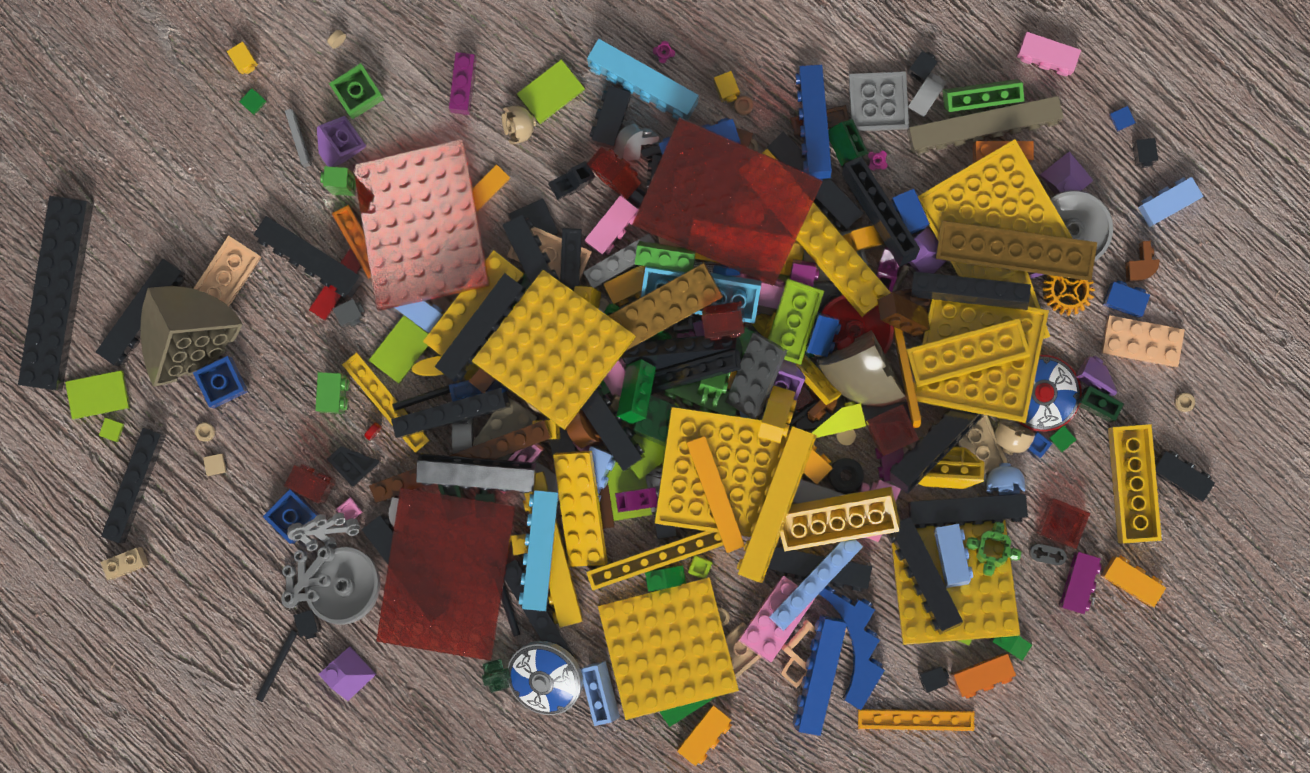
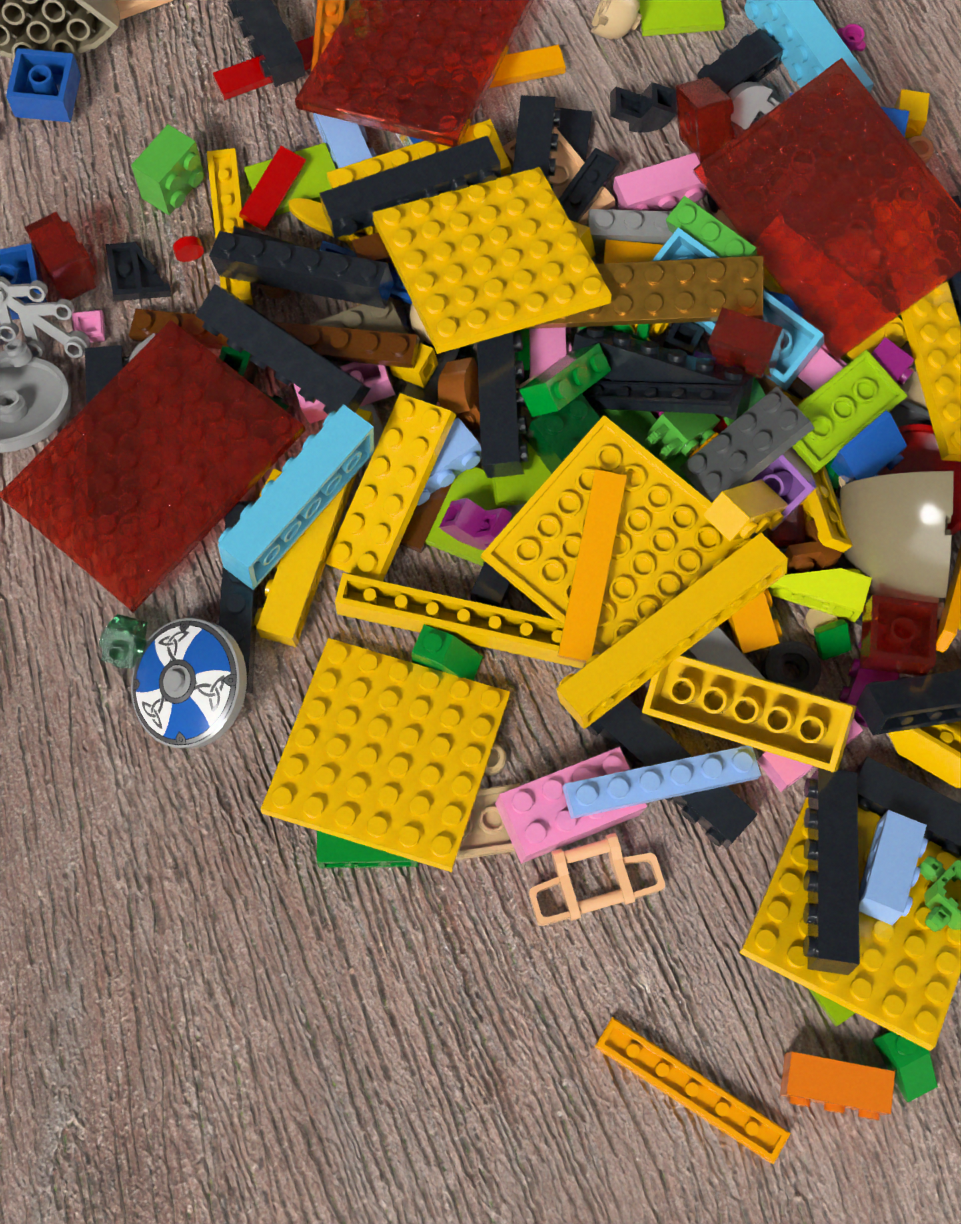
camera: 25 degrees right, 15 degrees down
(349, 313) = (259, 101): dark grey brick -> none
(395, 365) = (272, 188): none -> red tile
(462, 435) = (301, 308): light grey brick -> none
(509, 613) = (205, 568): black bar -> none
(600, 693) = (250, 753): light blue brick -> none
(700, 567) = (505, 672): lime tile -> none
(705, 735) = (360, 910): light orange brick -> none
(820, 675) = (586, 924): blue brick -> none
(858, 444) = (832, 639): none -> green tile
(865, 672) = (687, 877): blue arch -> none
(933, 678) = (756, 1041): black brick -> none

